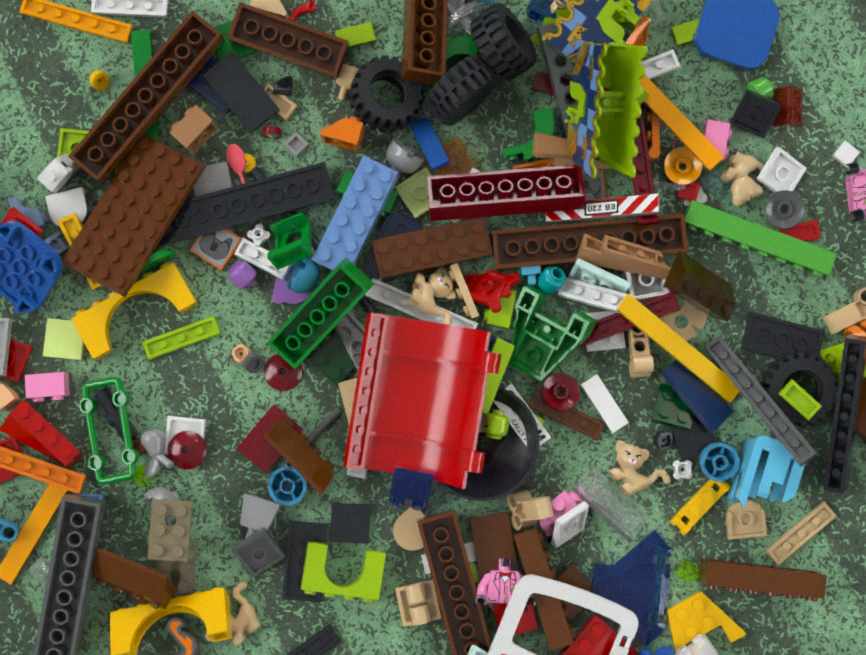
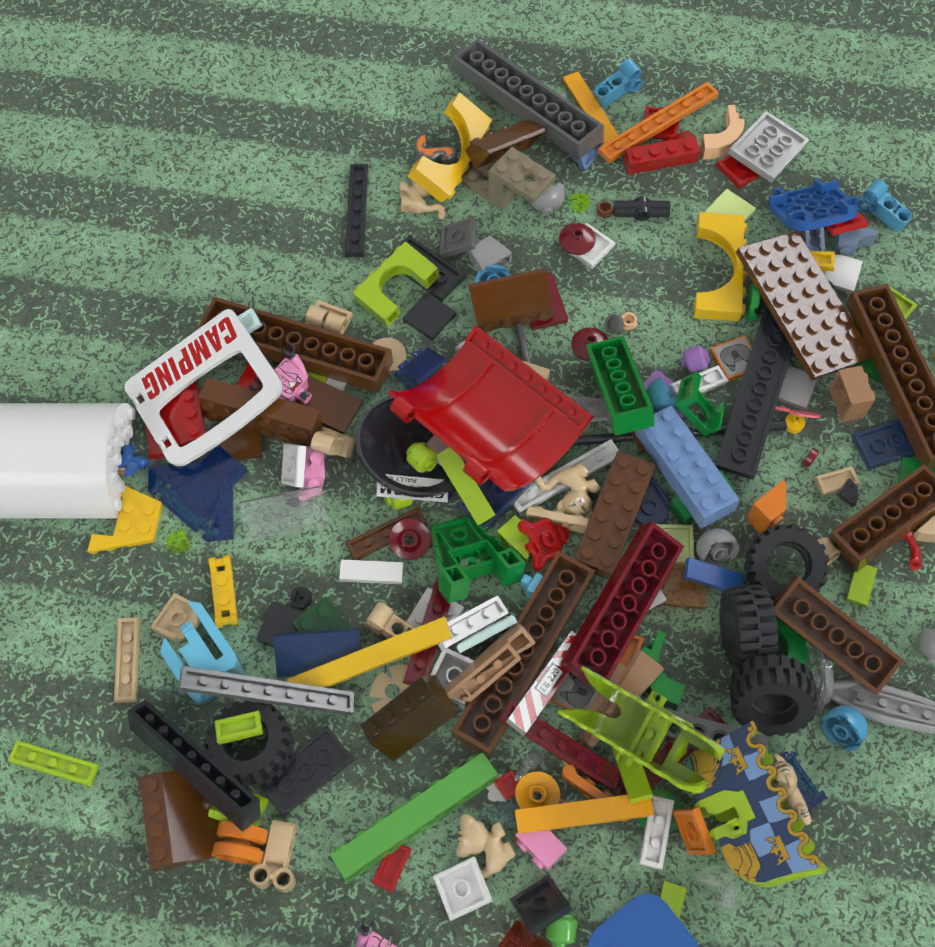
camera: 125 degrees right, 20 degrees down
(47, 385) = (700, 177): bright pink brick -> none
(57, 174) = (875, 269): white torso -> none
(88, 406) = (651, 213): green bar -> none
(154, 444) = (598, 218): light grey piece -> none
(181, 337) = (672, 289): lime tile -> none
(241, 92) = (864, 454): black tile -> none
(258, 240) = (719, 396): white plate -> none
(296, 144) = (786, 471): light grey tile -> none
(333, 360) = (573, 381): dark green plate -> none
(551, 279) = (513, 603): teal head -> none
(630, 459) = (306, 557): tan animal -> none
(687, 469) = (263, 591): white plate -> none
(719, 461) = (244, 625): dark azure cylinder -> none
(762, 578) = (119, 590): reddish brown brick -> none
(793, 213) = (416, 857): dark grey dish -> none

